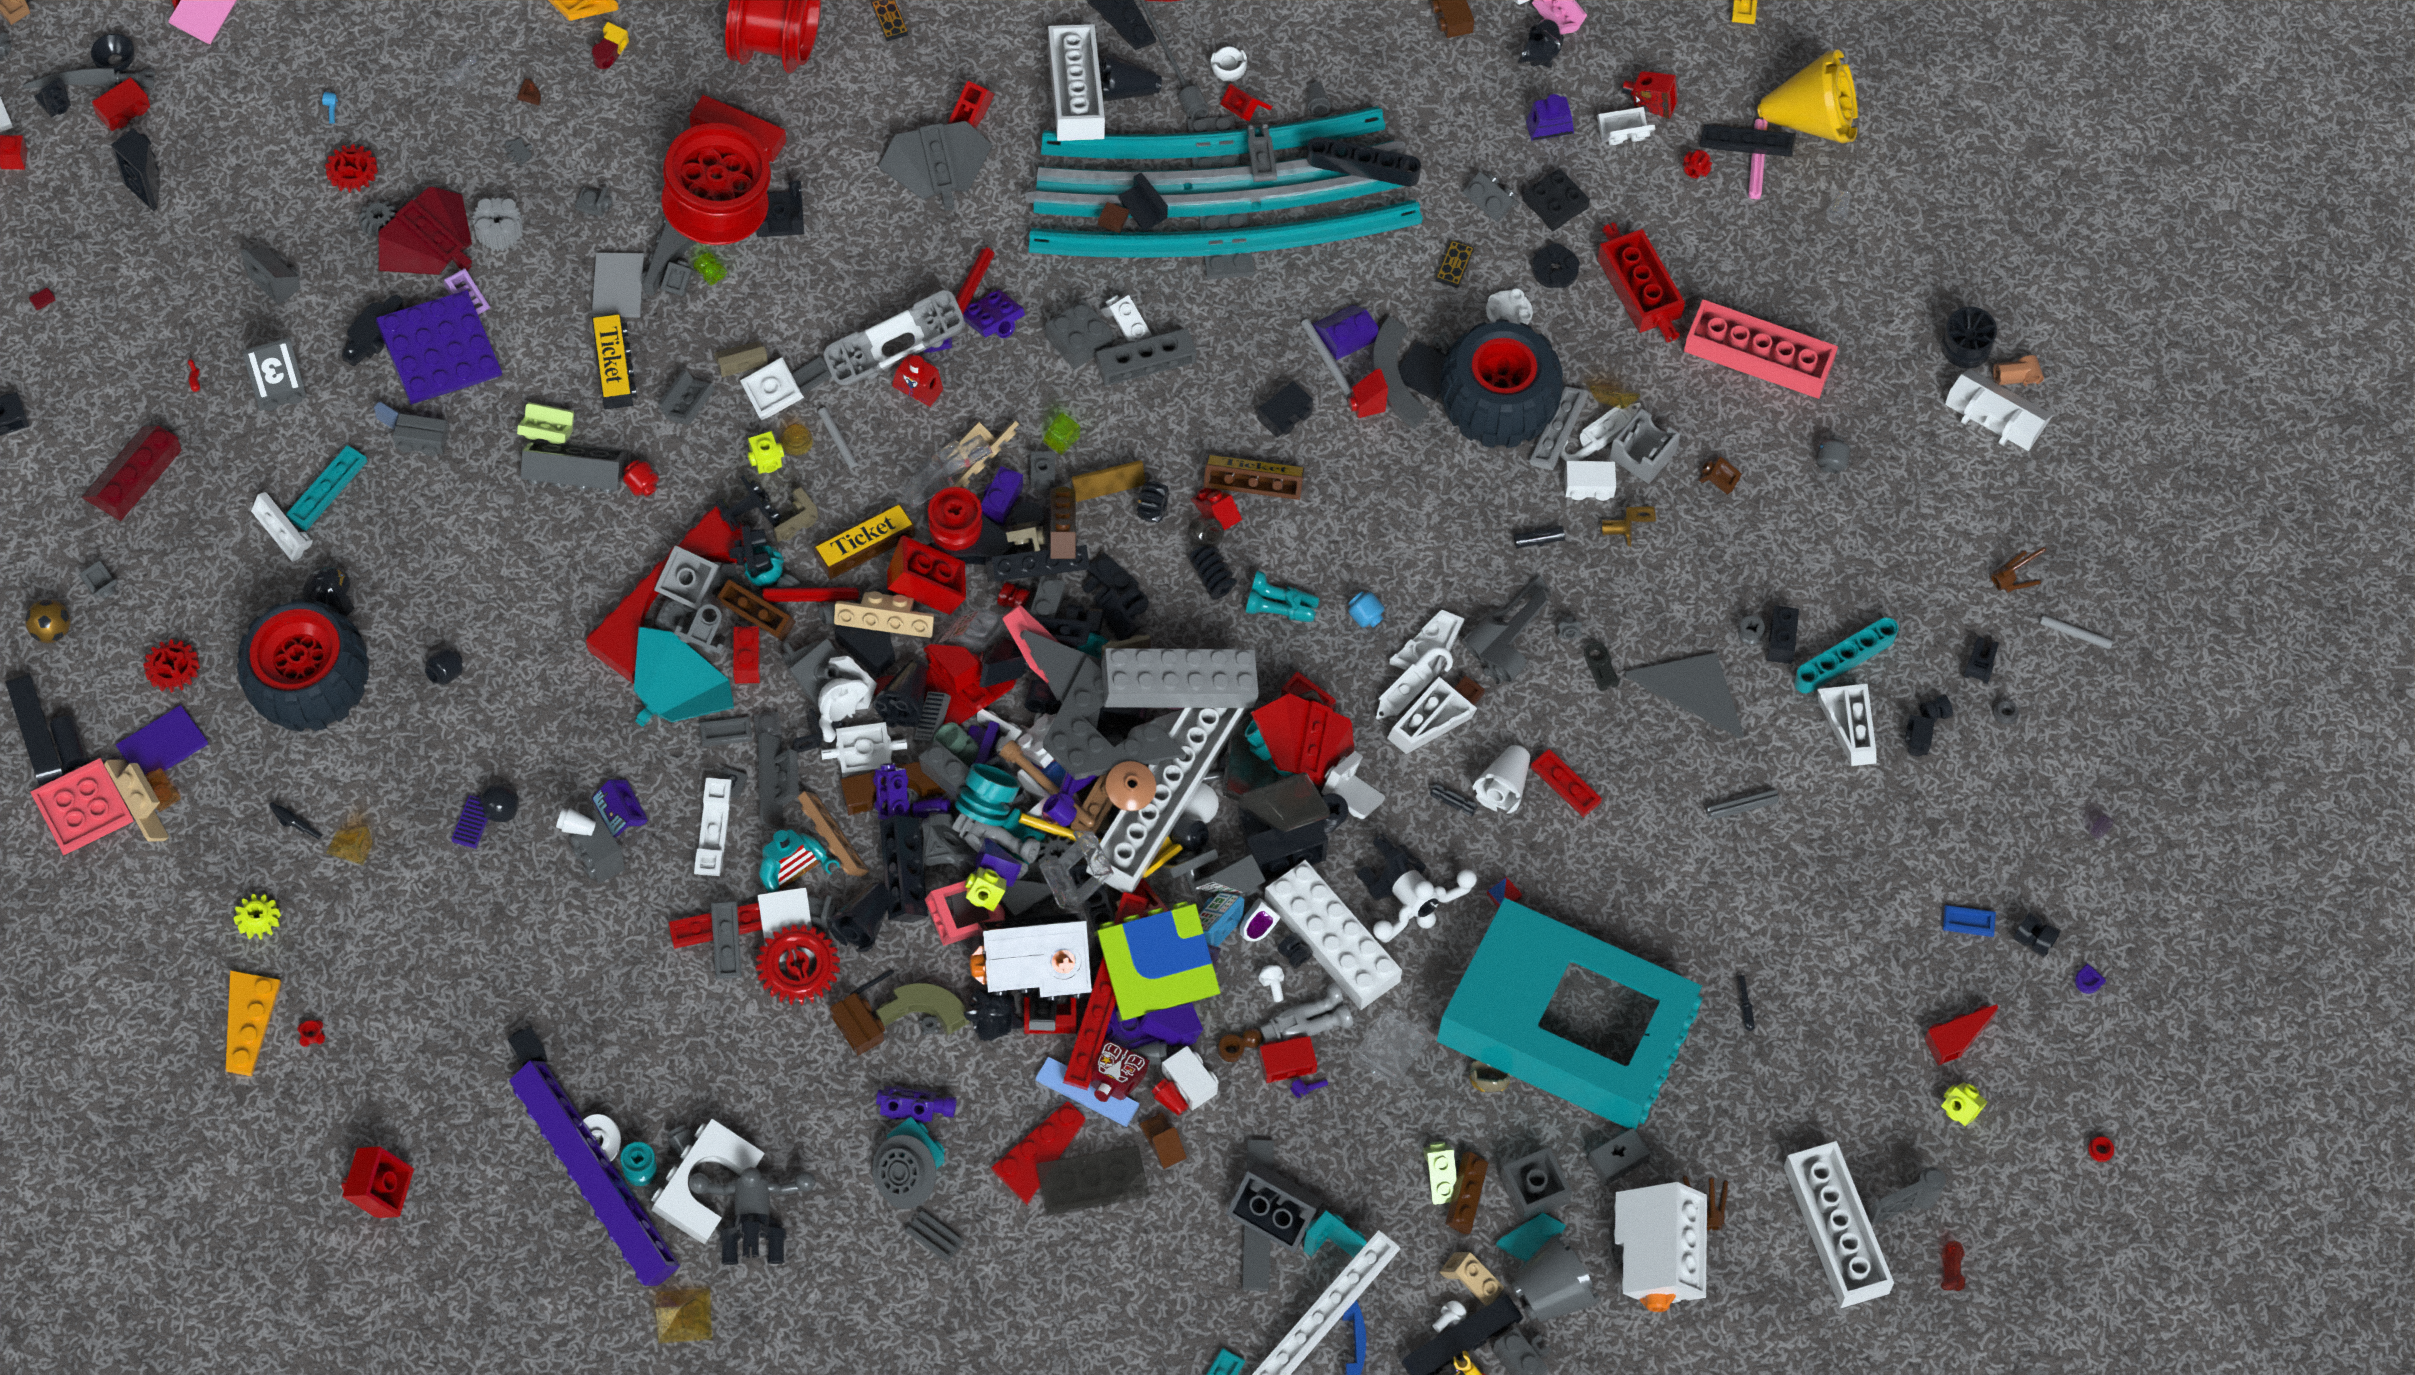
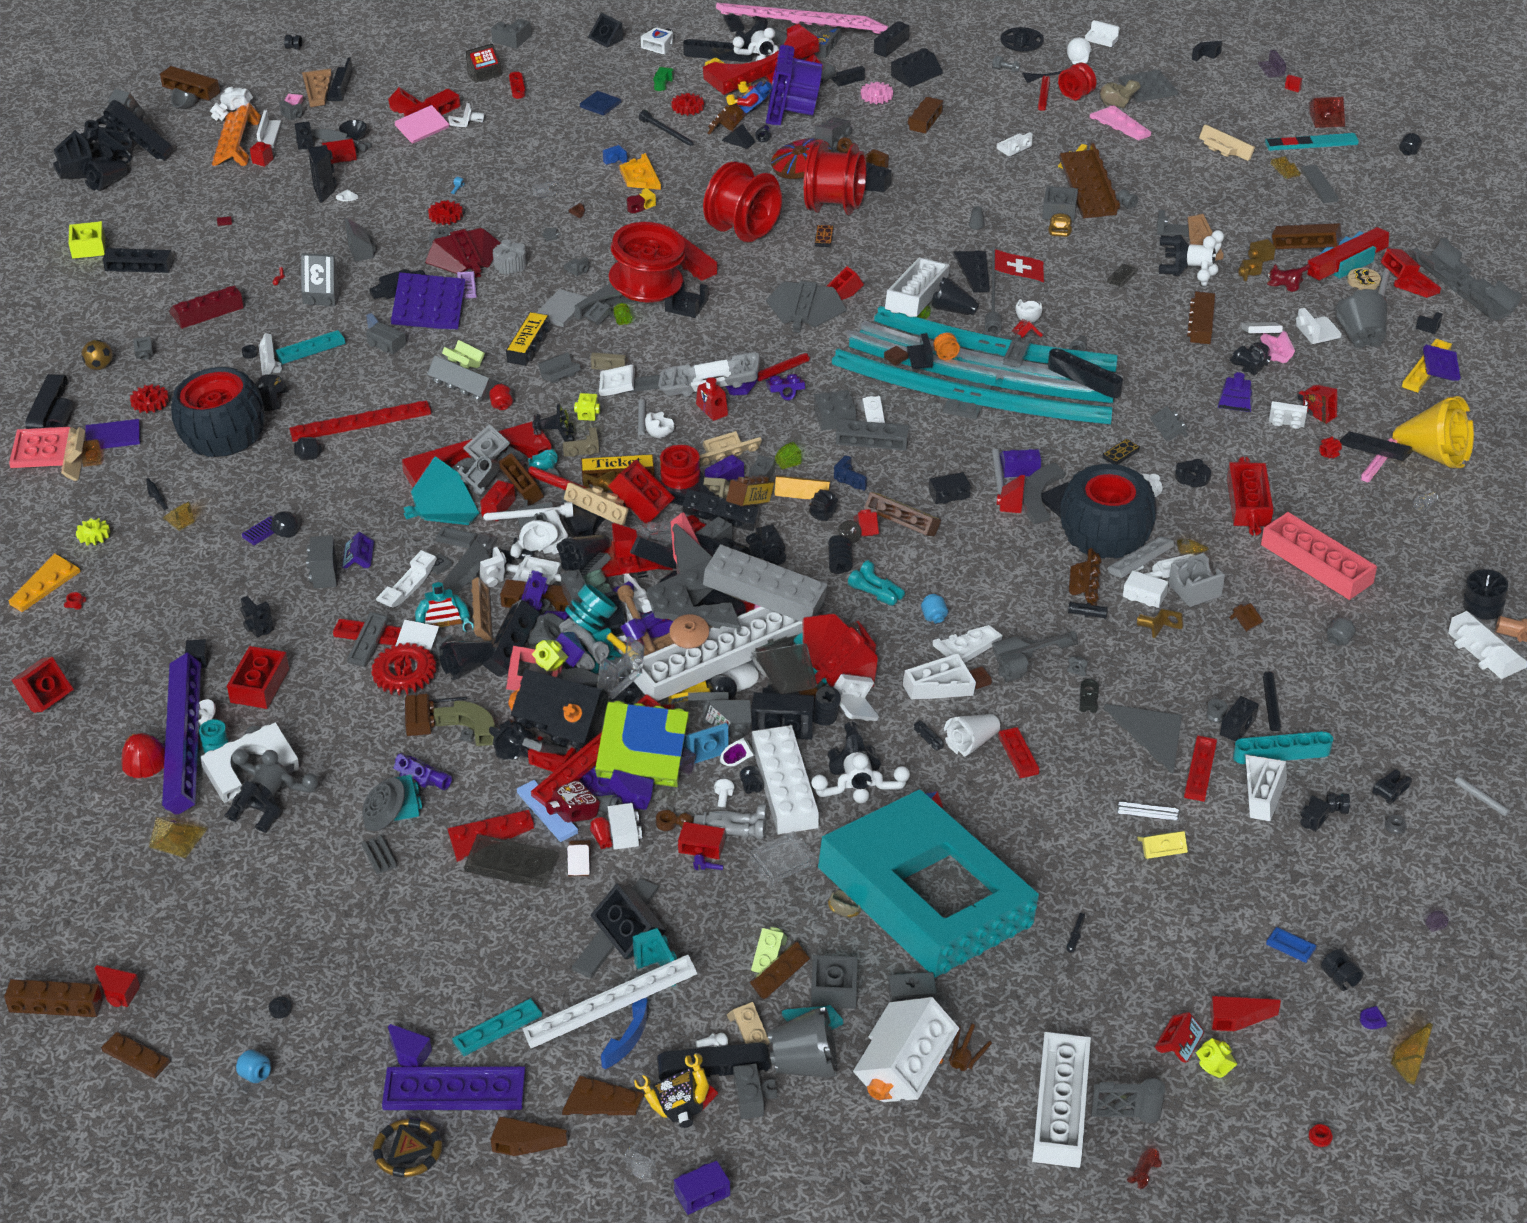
camera: 30 degrees right, 20 degrees down
(186, 184) = (346, 196): none -> white tile
(247, 521) = (249, 351): none -> black axle
(477, 589) = (361, 420): none -> red plate
(568, 1226) = (142, 756): none -> red hair
(569, 970) = (256, 617): none -> black bracket
(574, 822) = (310, 532): white cone -> none
(631, 1054) = (258, 677): none -> red brick
(754, 560) = (535, 444): black hips -> none
(796, 440) = (614, 408): clear yellow cone -> none
(818, 761) = (493, 569): none -> white bracket
(851, 643) = (565, 510): none -> white piece
(863, 573) = (603, 481): none -> pearl gold bracket
(874, 447) = (658, 425): none -> white hair
(938, 470) = (704, 441): clear slope -> none
(1146, 439) = (844, 474): none -> dark blue bracket
(1173, 182) = (946, 345): none -> orange wheel
(1411, 683) = (941, 652): white plate -> none
(1512, 490) = (1085, 577): none -> reddish brown bracket
(1556, 199) = (1215, 438): black brick -> none
(1771, 721) = (1200, 768): none -> red plate
(1779, 842) = (1163, 844): none -> light yellow panel
(1802, 589) = (1271, 701): none -> black axle
(1912, 1090) = (1180, 1036): none -> red panel
(2005, 576) = (1440, 742): reddish brown plant -> none
(2153, 1014) = (1410, 1054): none -> clear yellow slope

